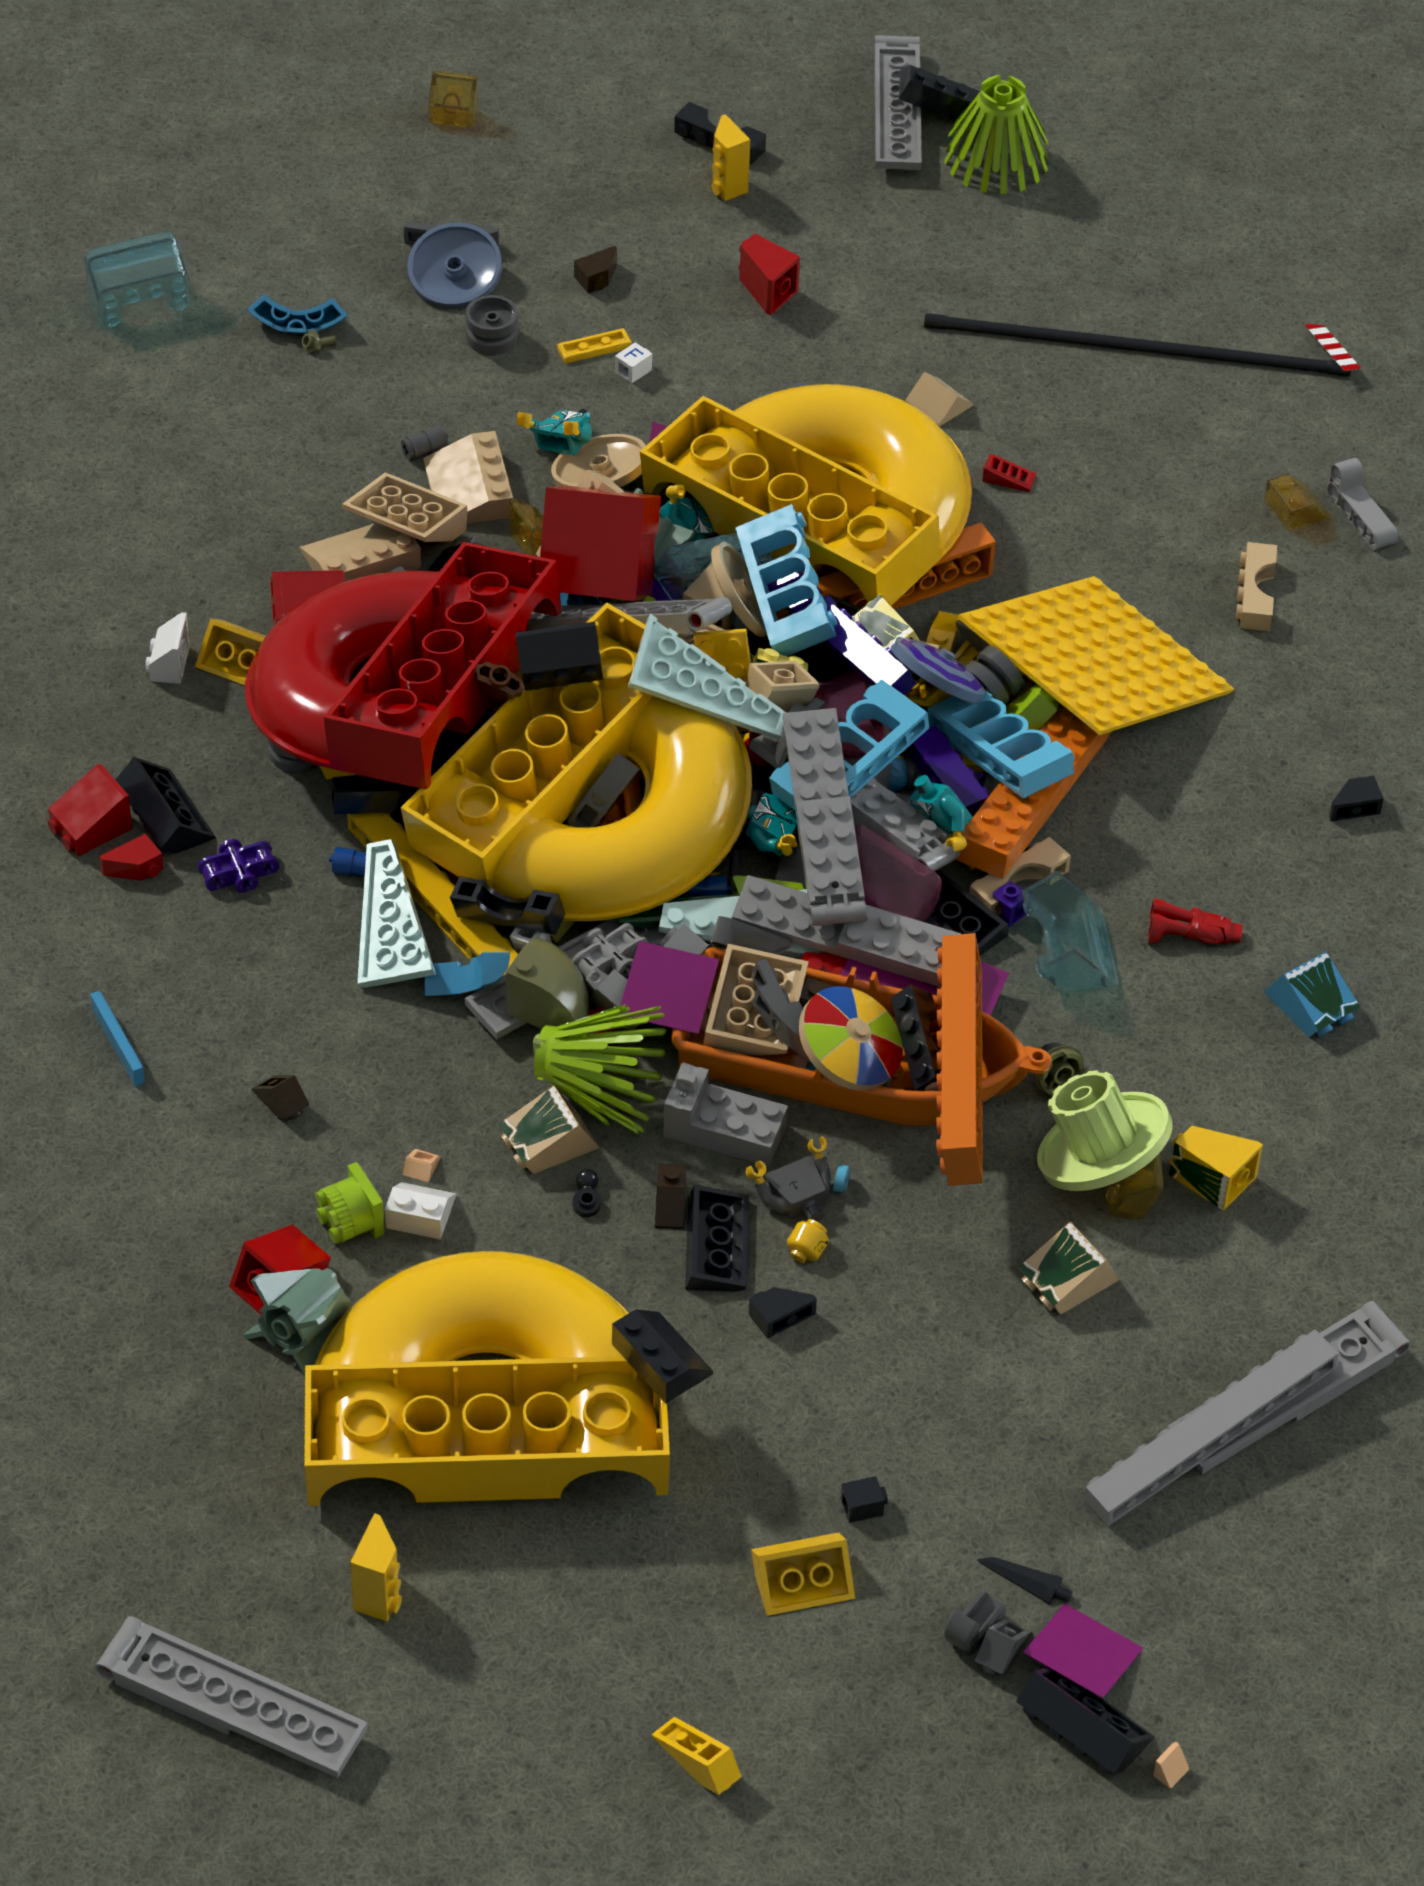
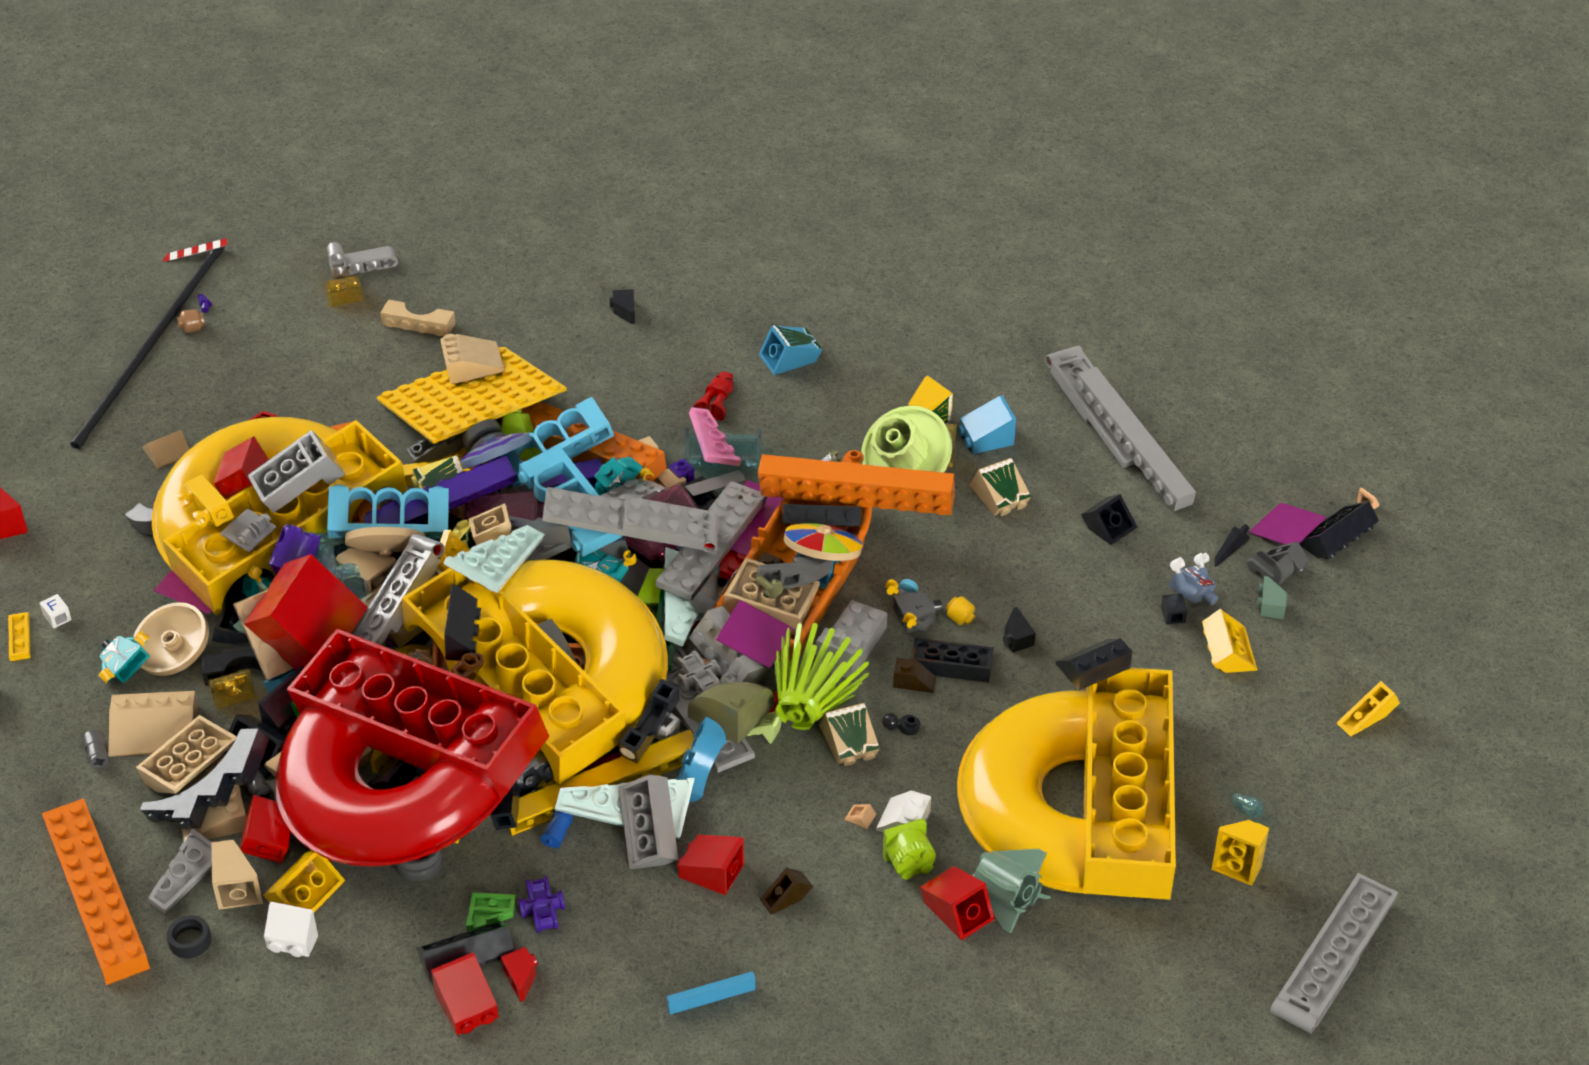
camera: 80 degrees left, 5 degrees down
(166, 587) = (193, 949): none -> black tyre
(216, 484) = (95, 892): none -> orange brick
(224, 819) = (489, 909): none -> bright green wing
(241, 584) = (233, 877): none -> tan slope
(252, 551) = (183, 872): none -> light grey wing
(312, 1015) = (712, 862): none -> red slope
(351, 537) = (215, 789): none -> arch
(359, 939) = (648, 822): none -> light grey slope
(492, 1599) = (1249, 805): none -> clear light blue cone
(706, 512) = (293, 545): none -> dark purple cylinder
(726, 461) = (248, 529): none -> light grey hinge
(744, 990) = (773, 588): none -> olive plate
(763, 413) = (208, 499): none -> yellow brick
(815, 470) = (295, 471): none -> light grey hinge
(836, 437) = (237, 465): none -> red slope
(909, 1626) = (1273, 599): none -> sand green slope
(913, 1517) = (1193, 581): none -> sand blue torso
(999, 941) = (715, 483): none -> light grey sticker
(1037, 1413) = (1110, 519): none -> black slope
(1068, 917) = (711, 439): none -> bright pink wing
(1175, 642) = (470, 357): none -> tan slope
(1182, 369) = (190, 321): none -> medium nougat head
(1198, 1247) = (988, 426): none -> slope
(1231, 378) = (204, 302): none -> dark purple bar

